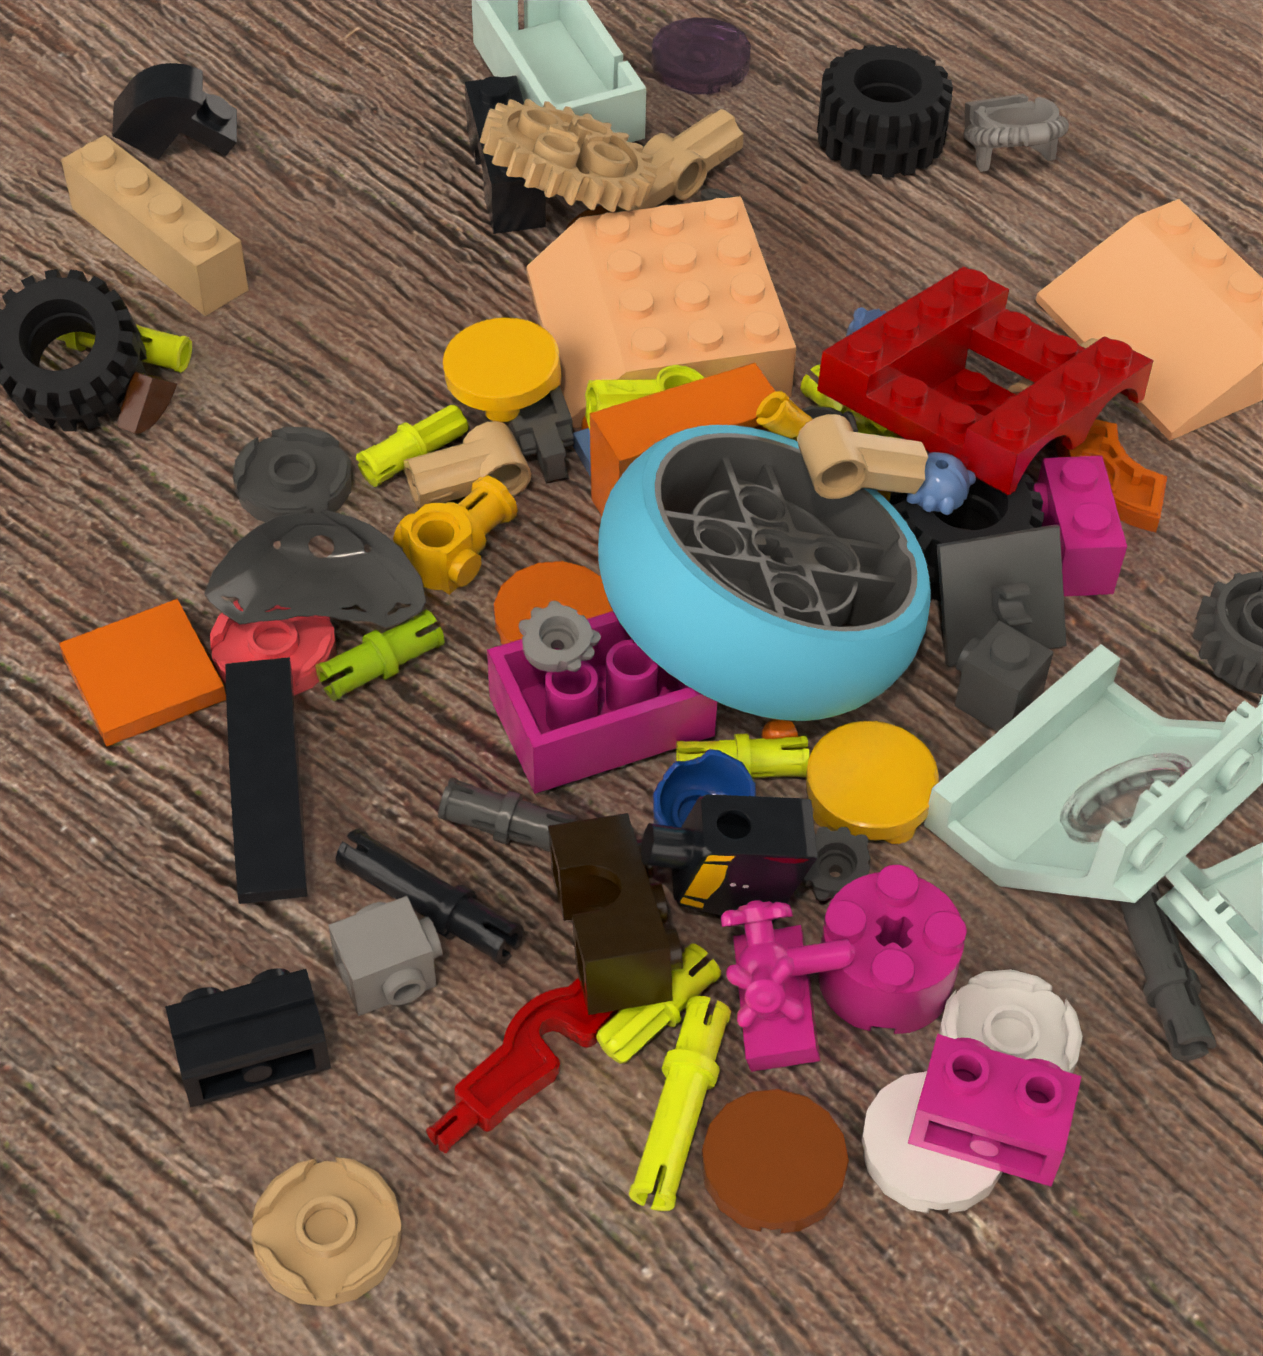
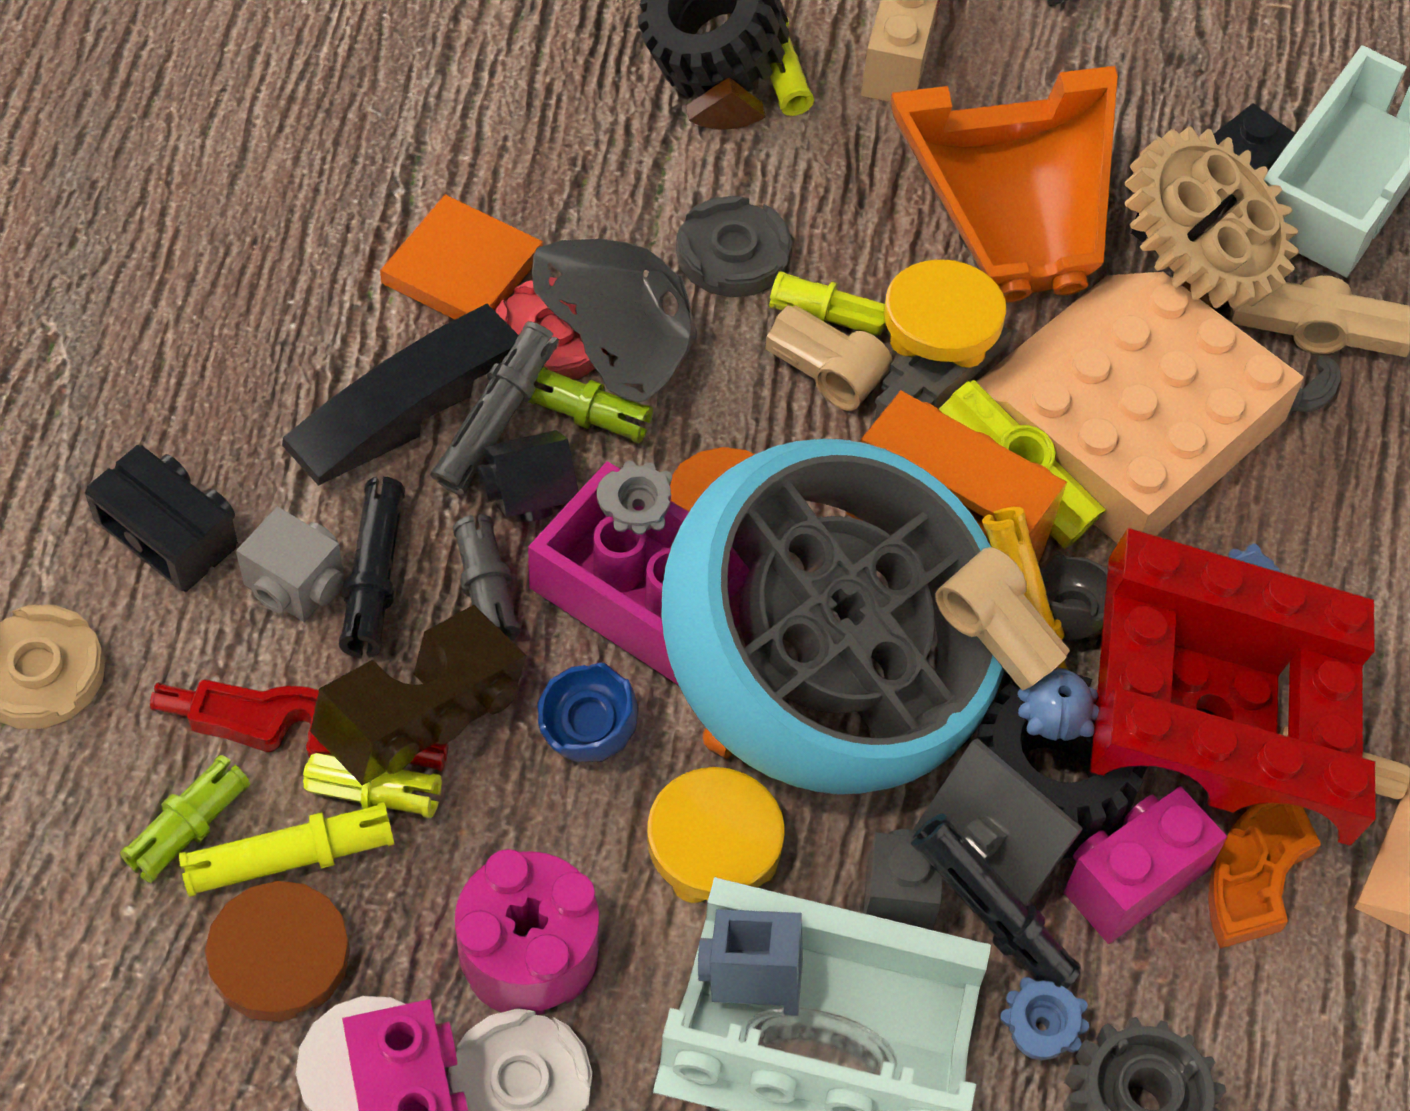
camera: 55 degrees right, 5 degrees up
(330, 694) = (507, 388): none -> dark grey pin
(410, 245) = (1022, 177): none -> orange cone
(433, 723) = (529, 475): none -> black brick
(447, 537) = (737, 383): yellow connector -> none
(591, 1173) = (185, 818): none -> lime pin
(735, 851) = (531, 775): black torso -> none
(760, 756) = (671, 720): neon yellow pin -> none
(776, 984) = (428, 854): dark pink piece -> none
(838, 853) = (597, 833): dark grey animal -> none
(1020, 799) = (754, 958): none -> sand blue brick
(1112, 628) = (1015, 926): none -> black pin
(1165, 657) = (1047, 1005): none -> medium blue animal

